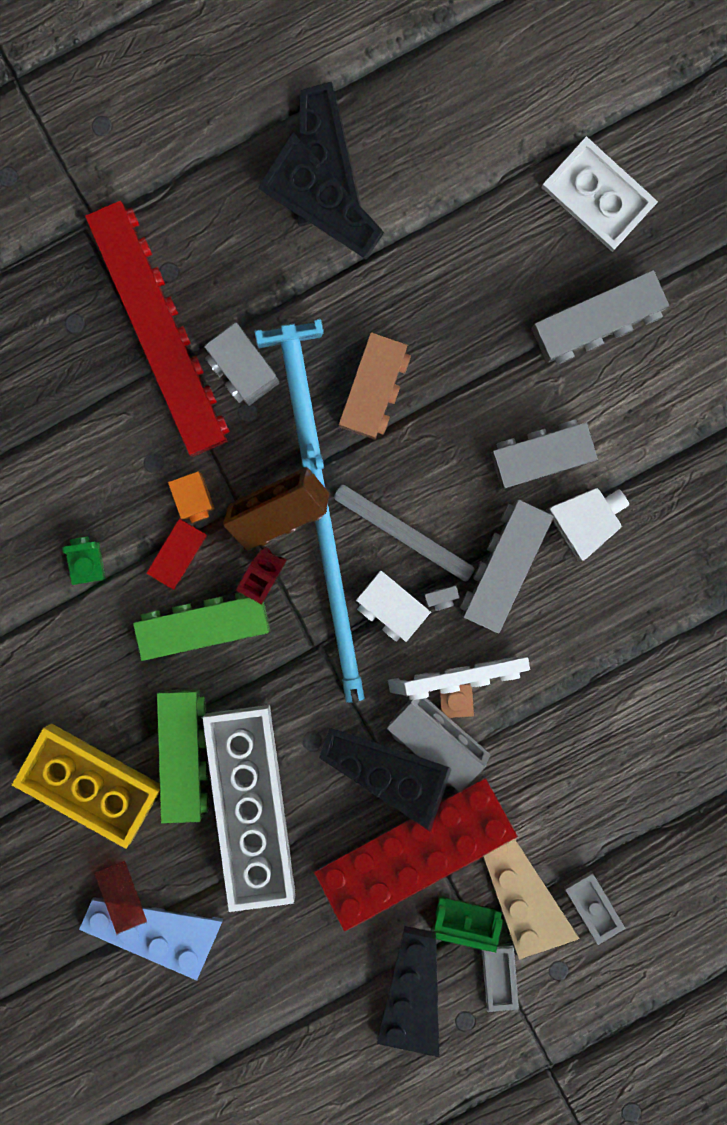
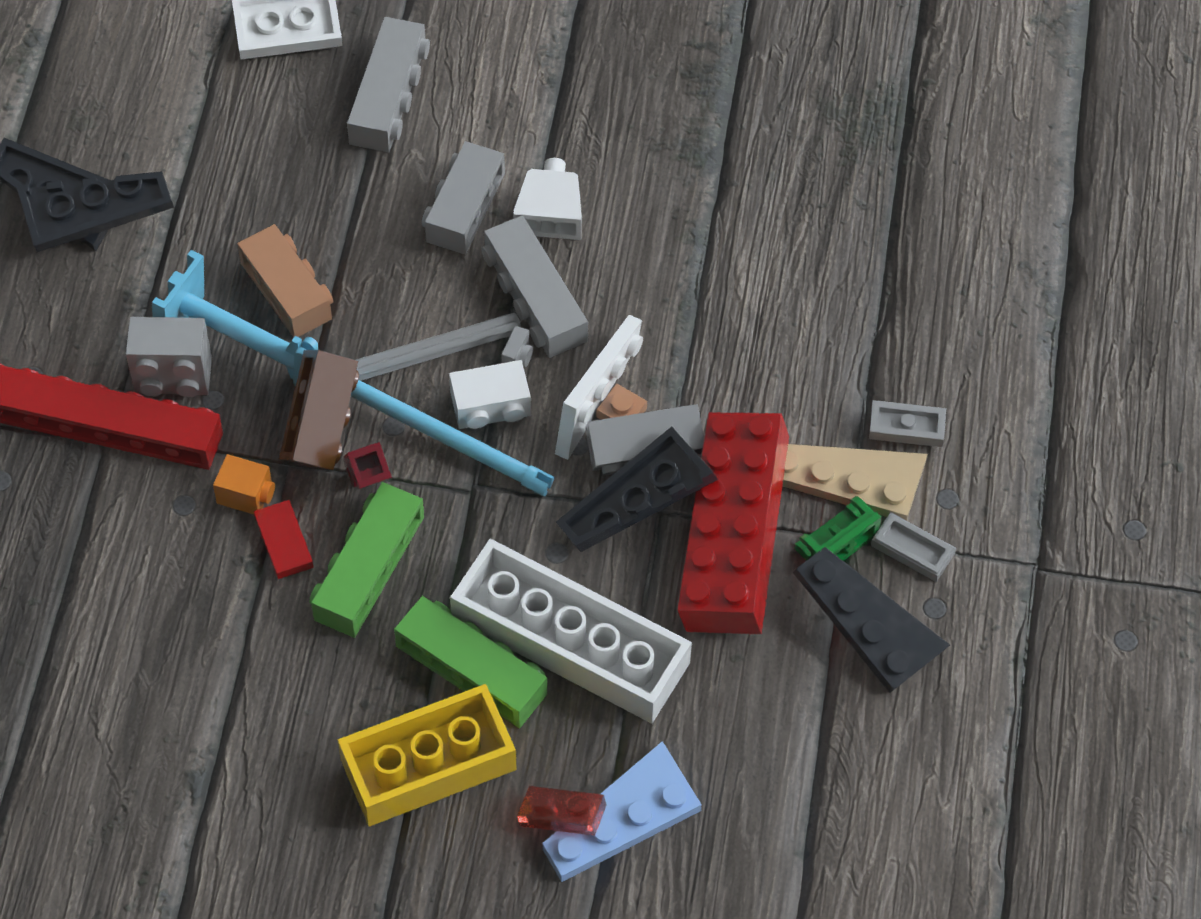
camera: 50 degrees left, 30 degrees down
(84, 561) = (216, 618): green bracket -> none

